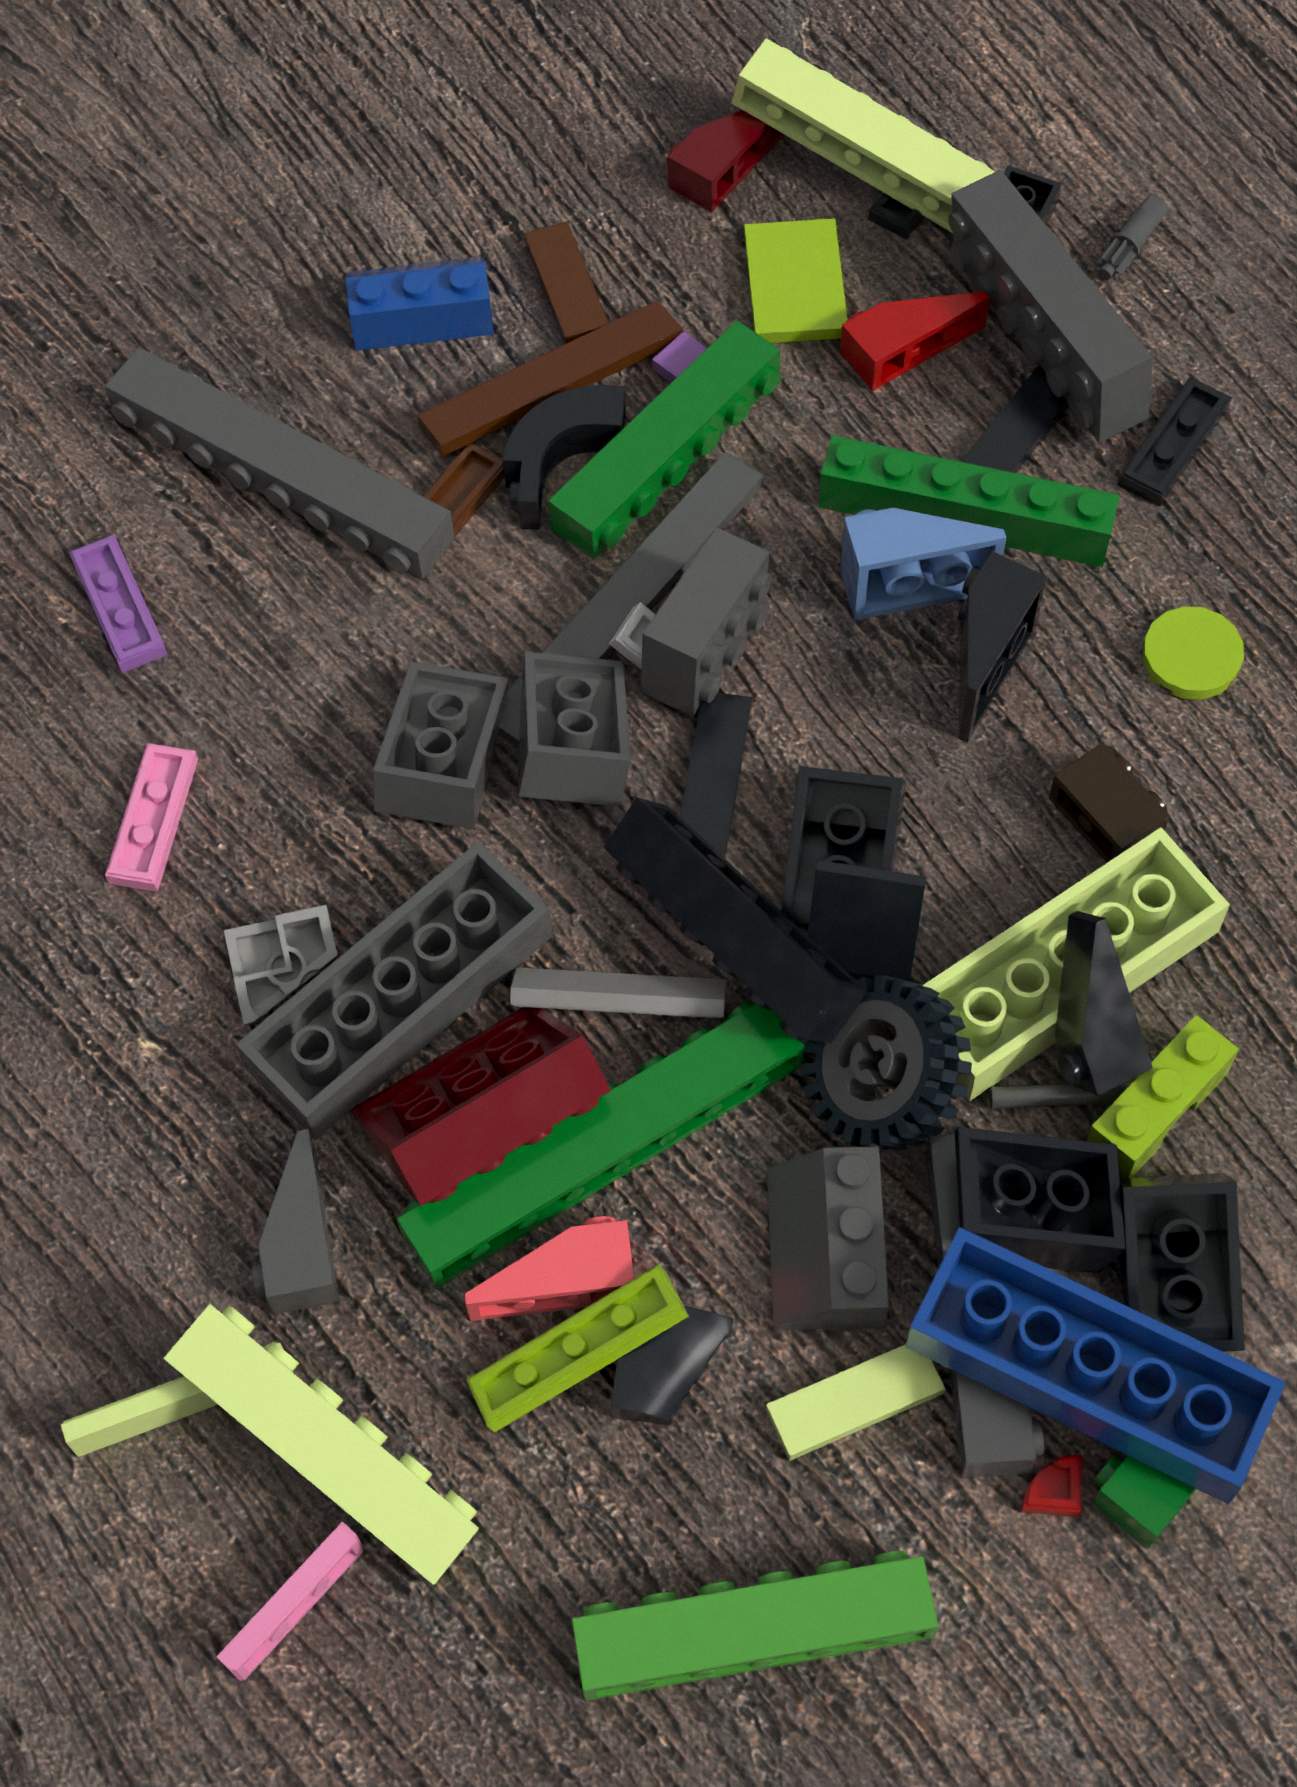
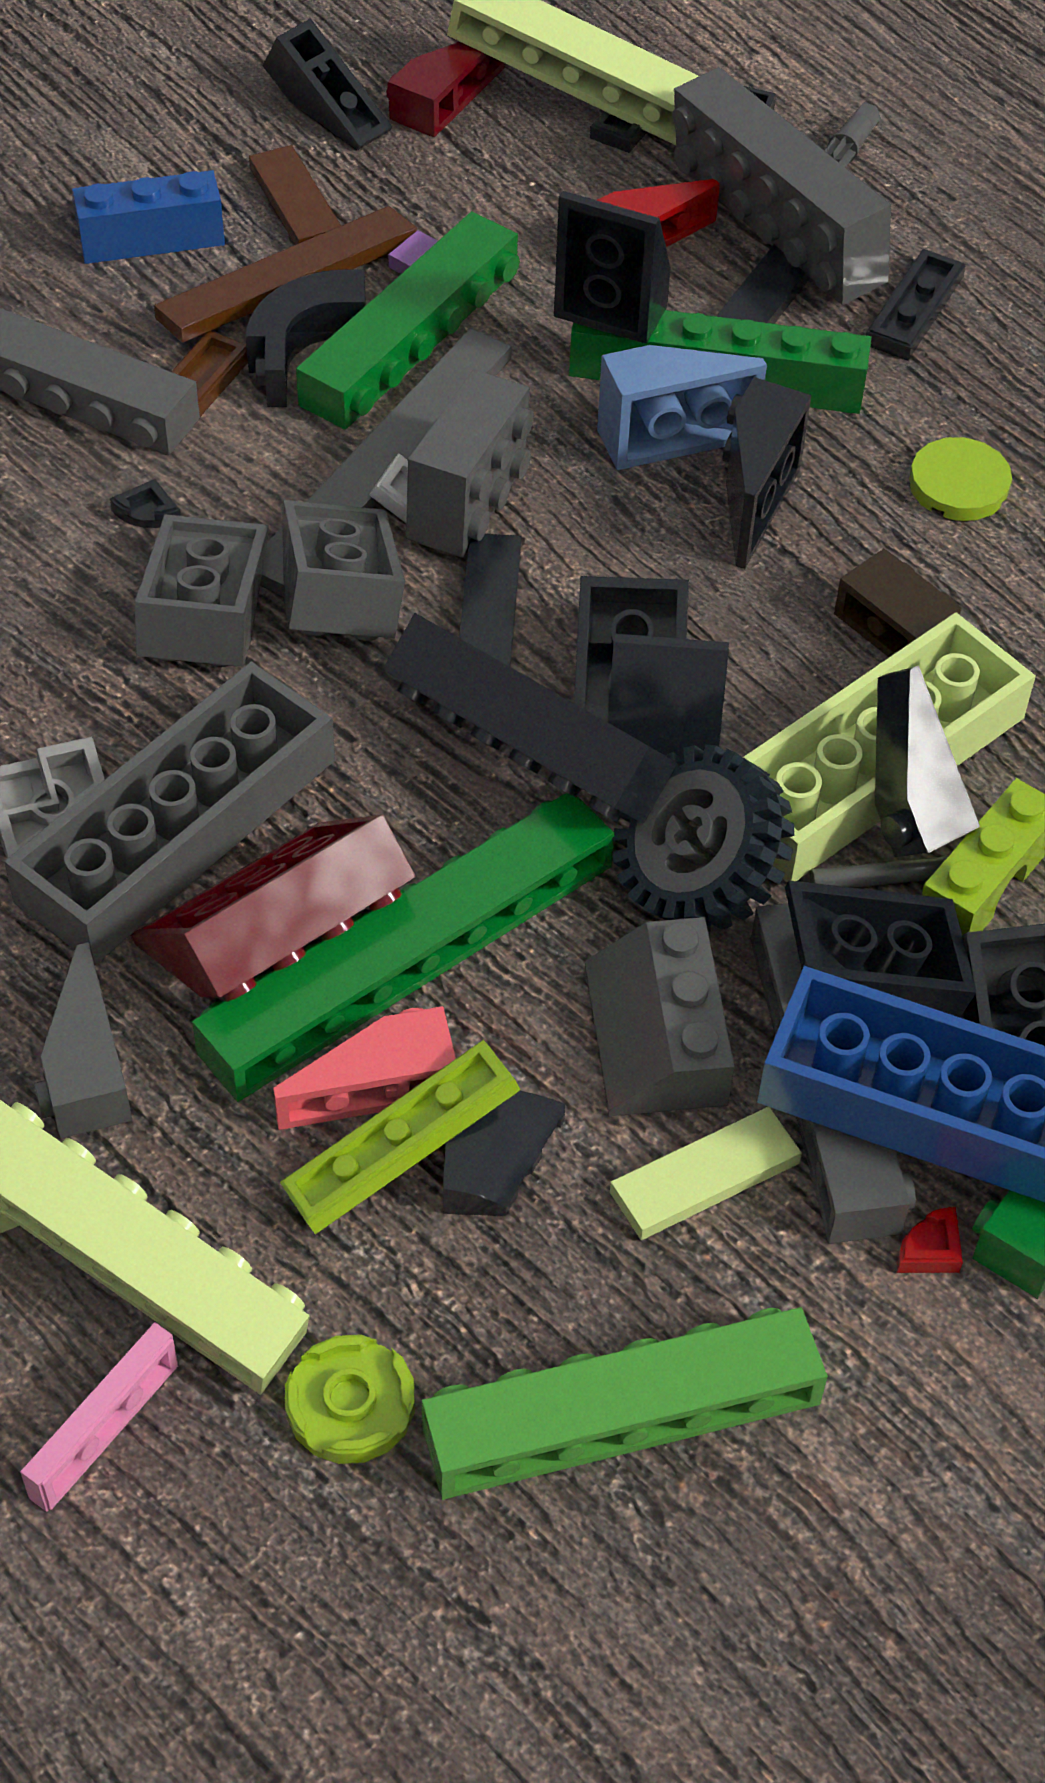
camera: 10 degrees left, 10 degrees down
(396, 640) = (144, 505): none -> black tile
(519, 1615) = (355, 1421): none -> lime tile
(606, 155) = (323, 85): none -> black slope
(618, 992) = (411, 804): light grey tile -> none
(795, 280) = (521, 182): lime tile -> none
(859, 429) = (610, 268): none -> black slope

